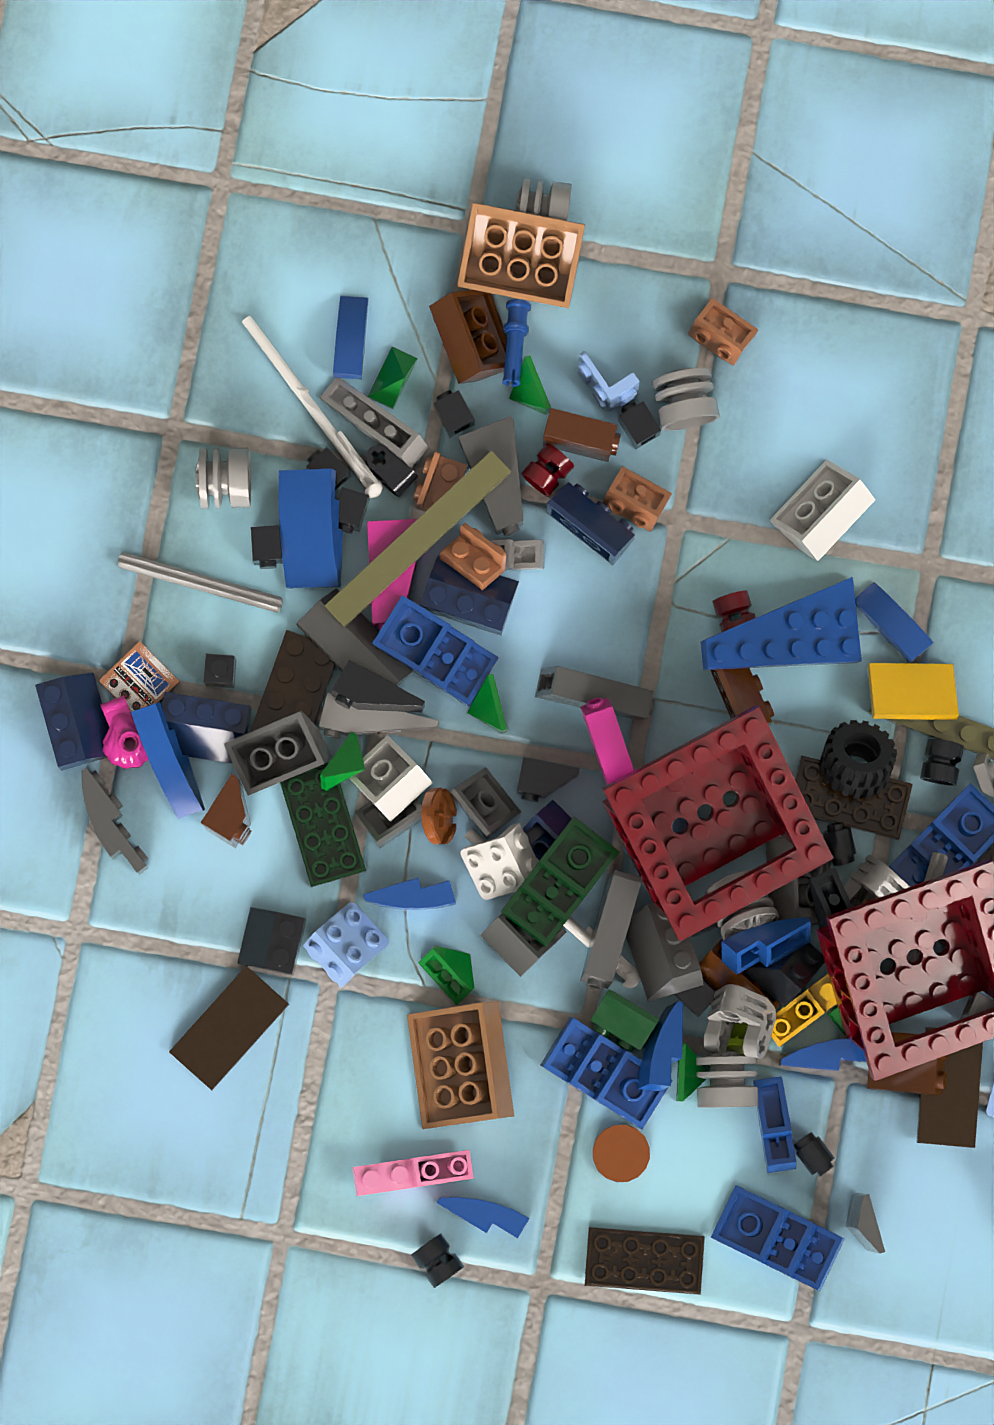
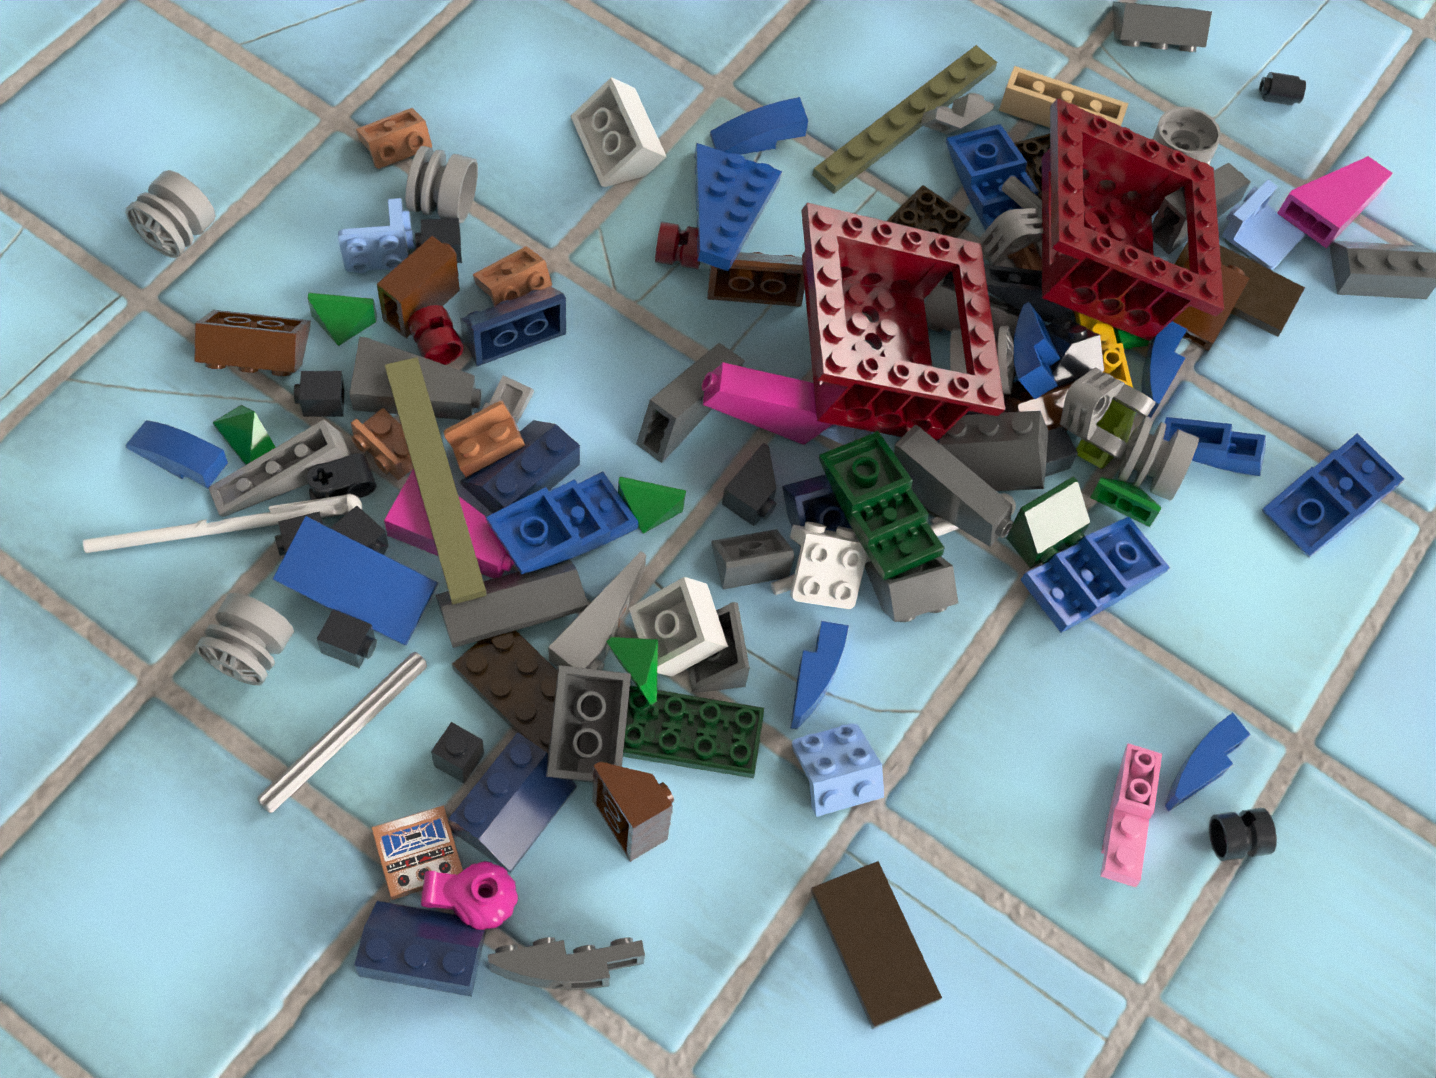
camera: 70 degrees left, 20 degrees down
(167, 761) = (529, 856): blue slope -> none
(272, 941) = (797, 843): black slope -> none
(369, 691) = (572, 597): black slope -> none
(437, 815) = (745, 598): dark orange tile -> none
(450, 971) = (919, 675): green slope -> none
(460, 1065) = (1028, 712): medium nougat slope -> none
(516, 330) = (274, 299): blue pin -> none
(521, 255) = (200, 248): medium nougat slope -> none
(621, 1153) = (1187, 600): dark orange tile -> none
(644, 1260) = (1311, 632): dark brown tile -> none
(662, 1049) = (1106, 508): blue slope -> none
(814, 1154) = (1260, 420): black brick -> none
(860, 741) = (884, 194): black tyre -> none
(863, 1223) = (1362, 388): dark grey slope -> none
(913, 691) = (835, 140): yellow tile -> none
(941, 762) = (911, 146): black wheel -> none

